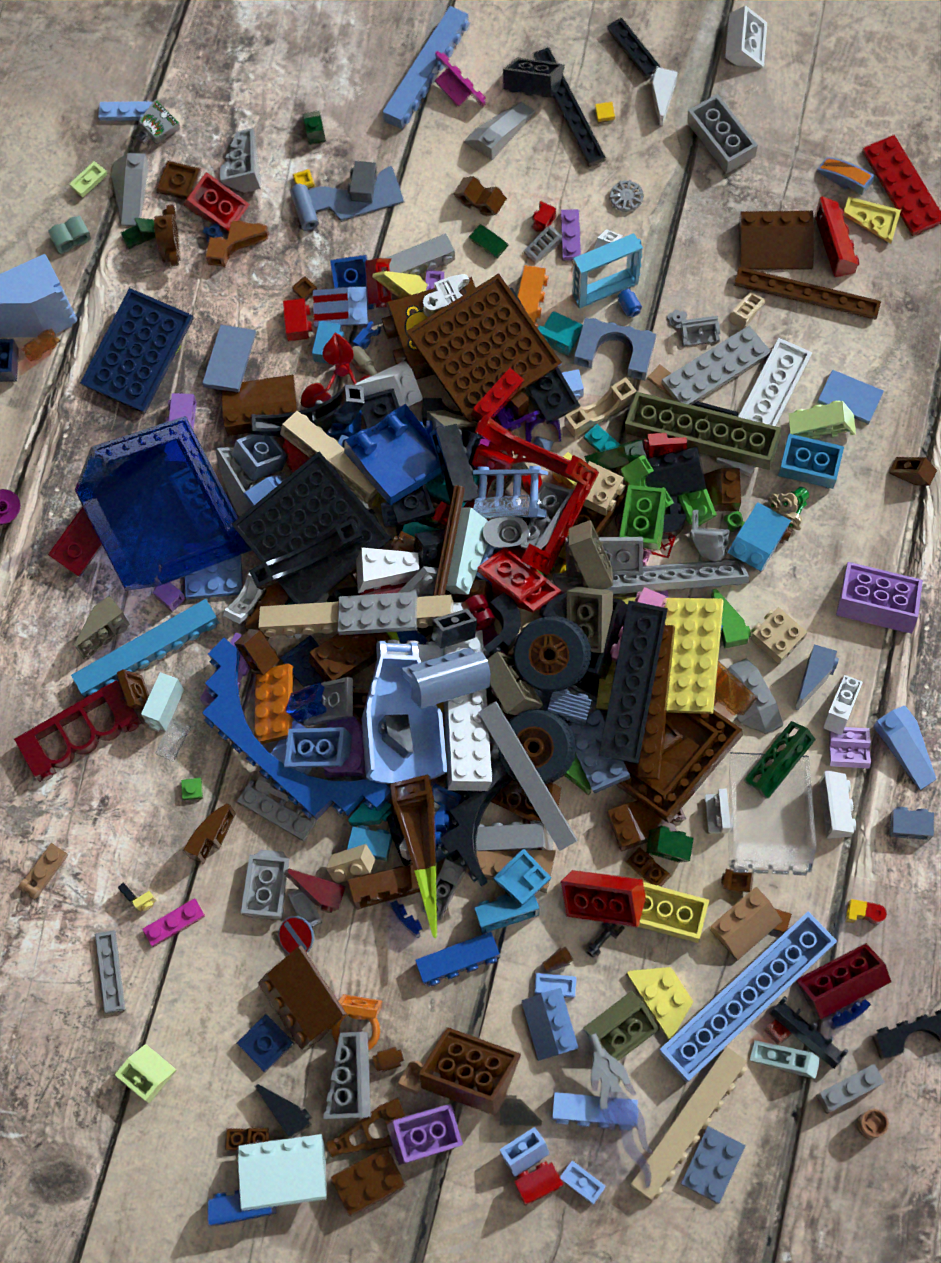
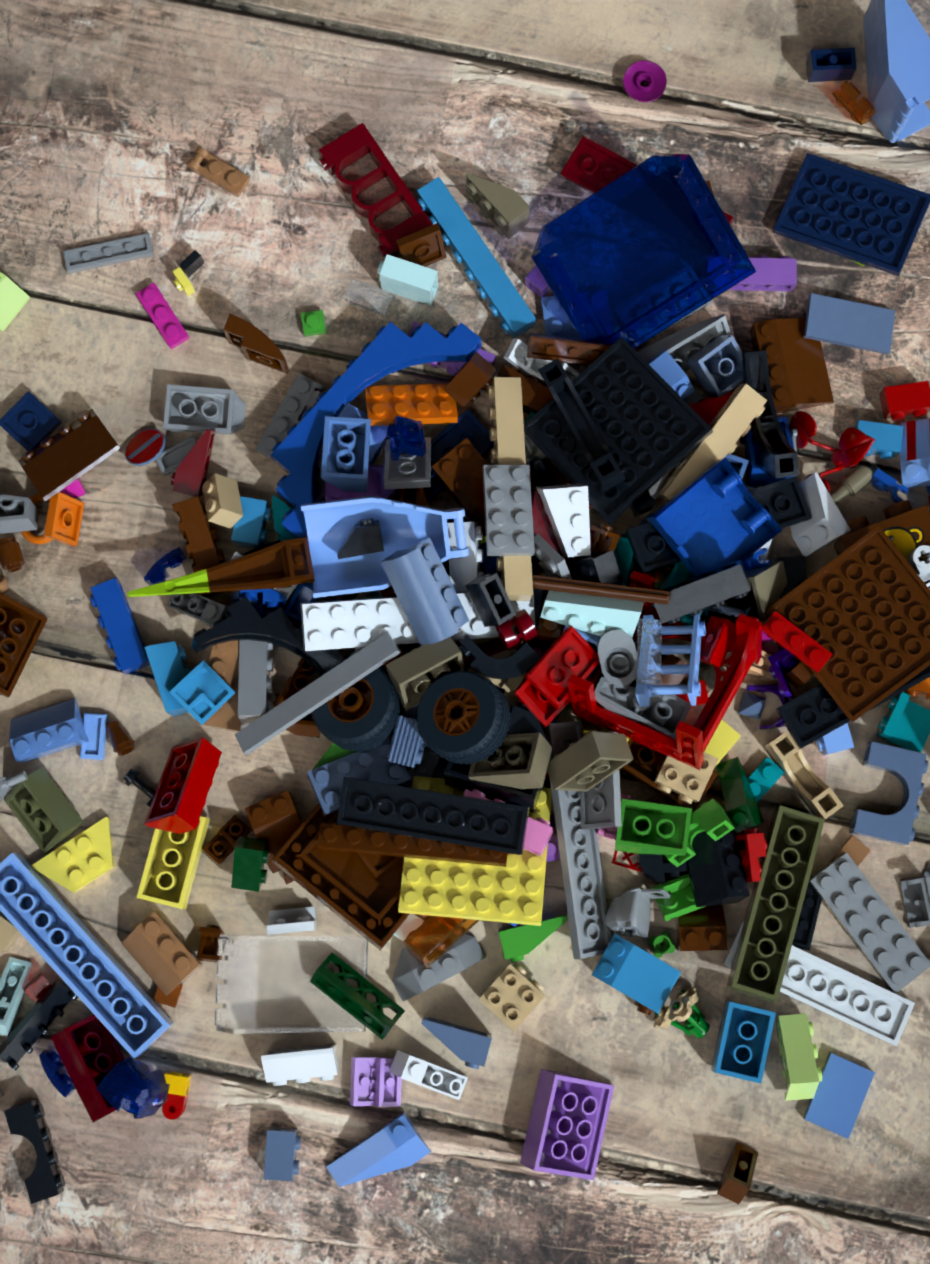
camera: 85 degrees right, 10 degrees up
(237, 571) = (565, 349): none -> reddish brown tile
(862, 940) = (134, 1088): none -> clear blue brick

